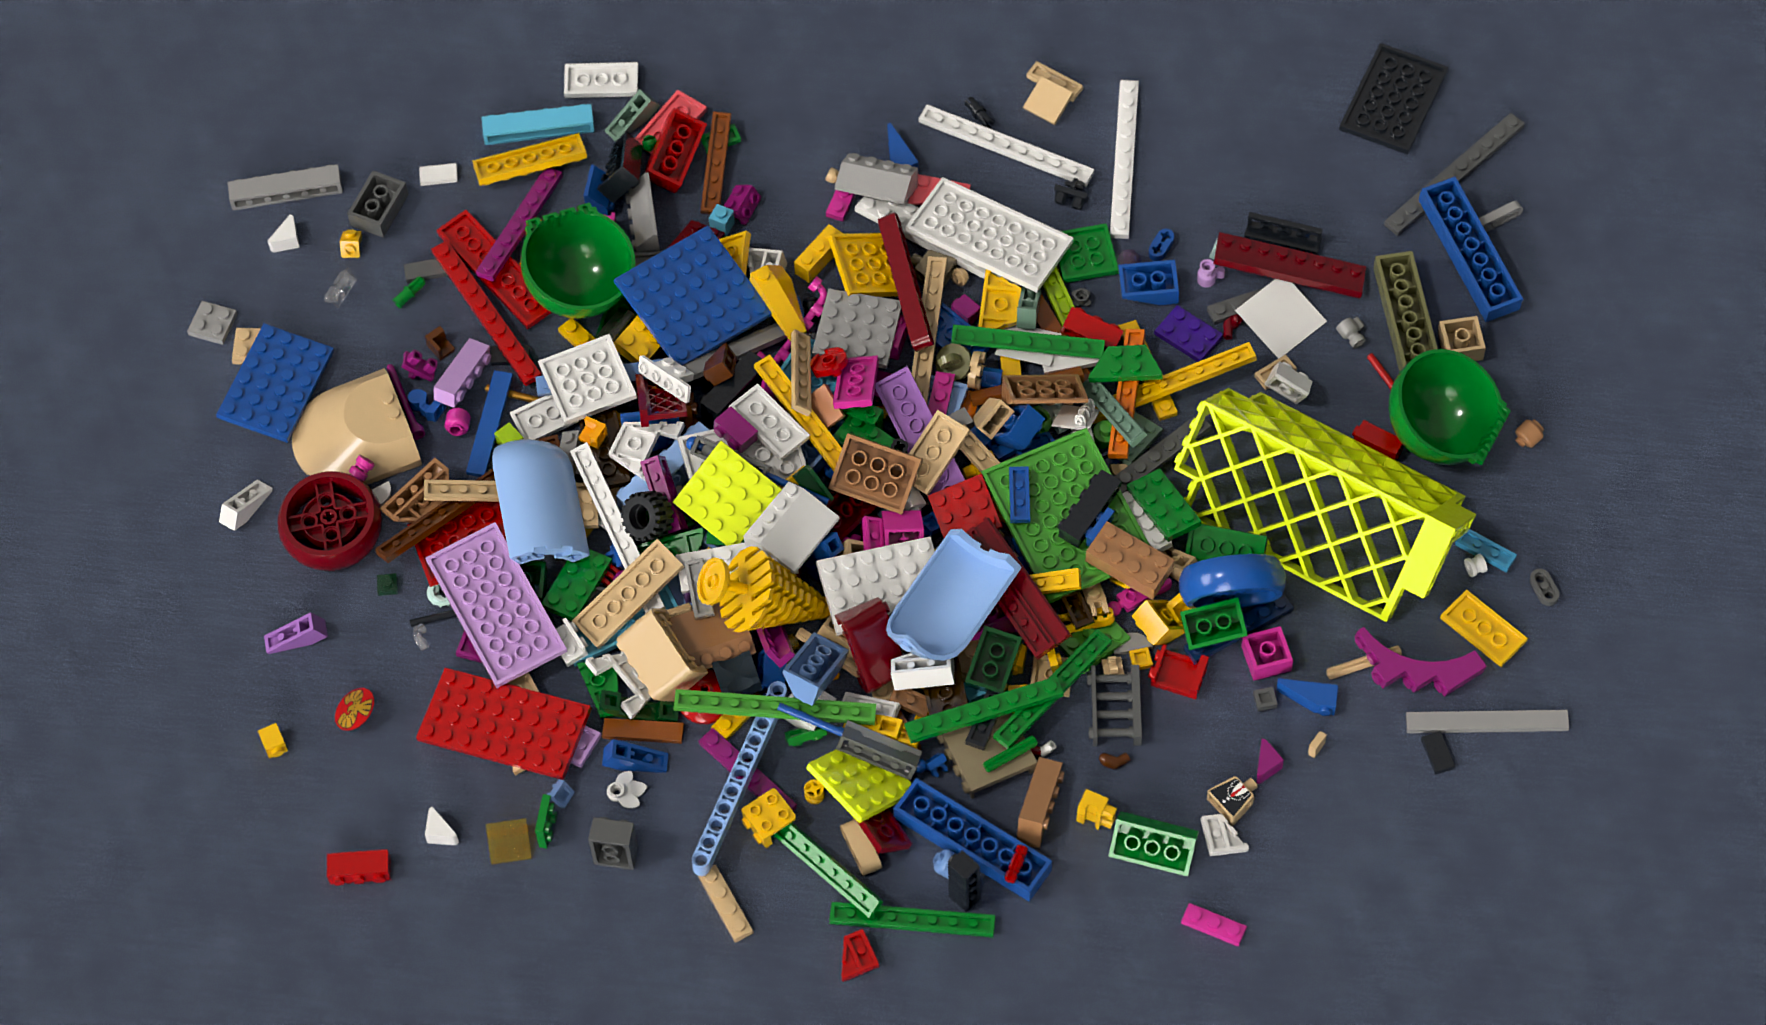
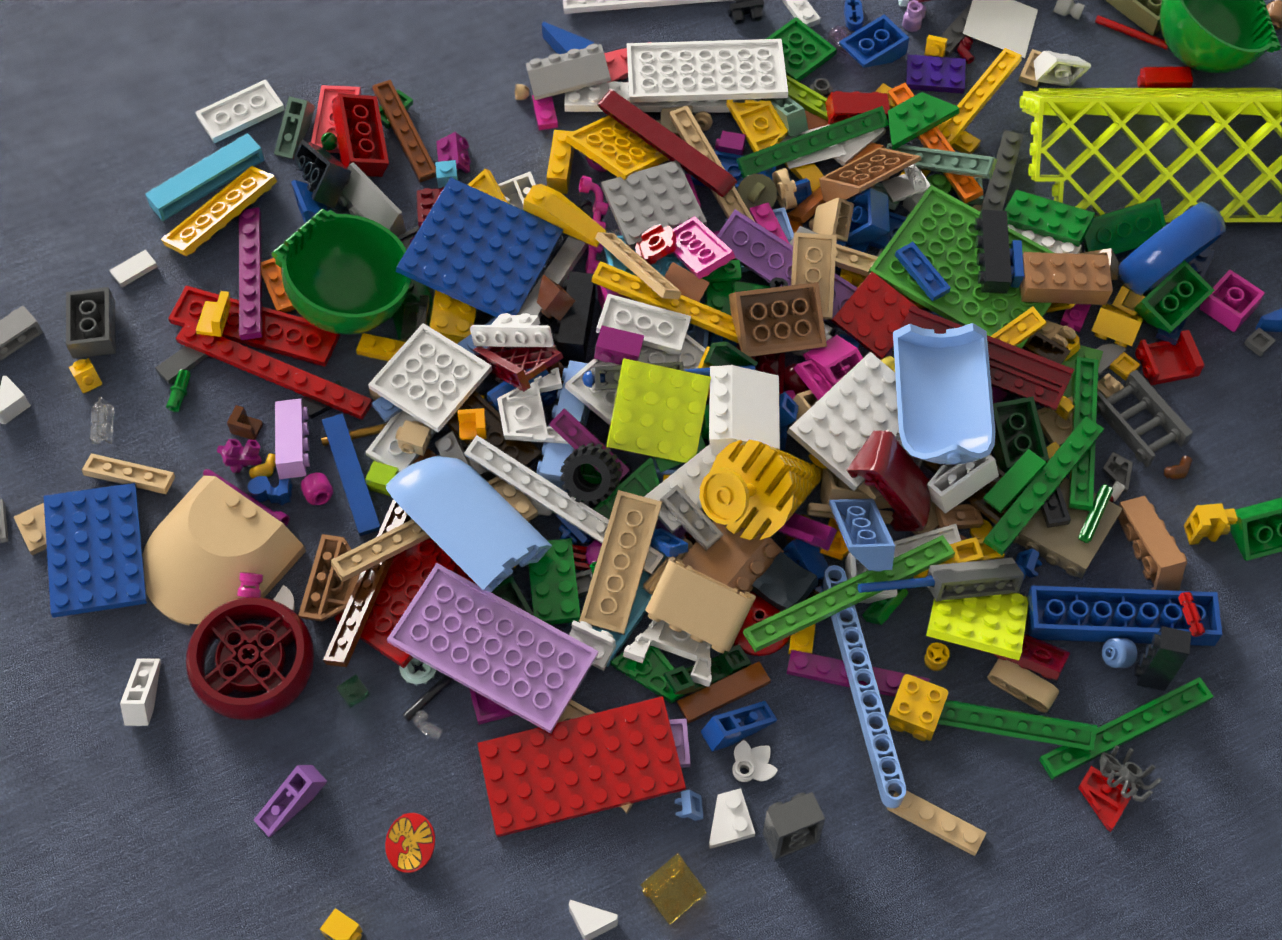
camera: 35 degrees left, 0 degrees up
(334, 337) = (127, 473): none -> tan plate
(427, 386) = (265, 469): none -> yellow arm
(468, 246) = (214, 316): none -> yellow panel
(546, 816) = (704, 850): green plate -> none
(548, 420) = (413, 437): none -> tan brick
(579, 820) = (730, 819): none -> white wing
(671, 598) = (668, 543): none -> blue plate
(882, 947) = (1128, 773): none -> dark grey animal
(962, 694) = (1014, 481): none -> green tile
(1066, 734) = (1118, 469): none -> dark grey piece
(1204, 310) = (935, 46): none -> yellow plate

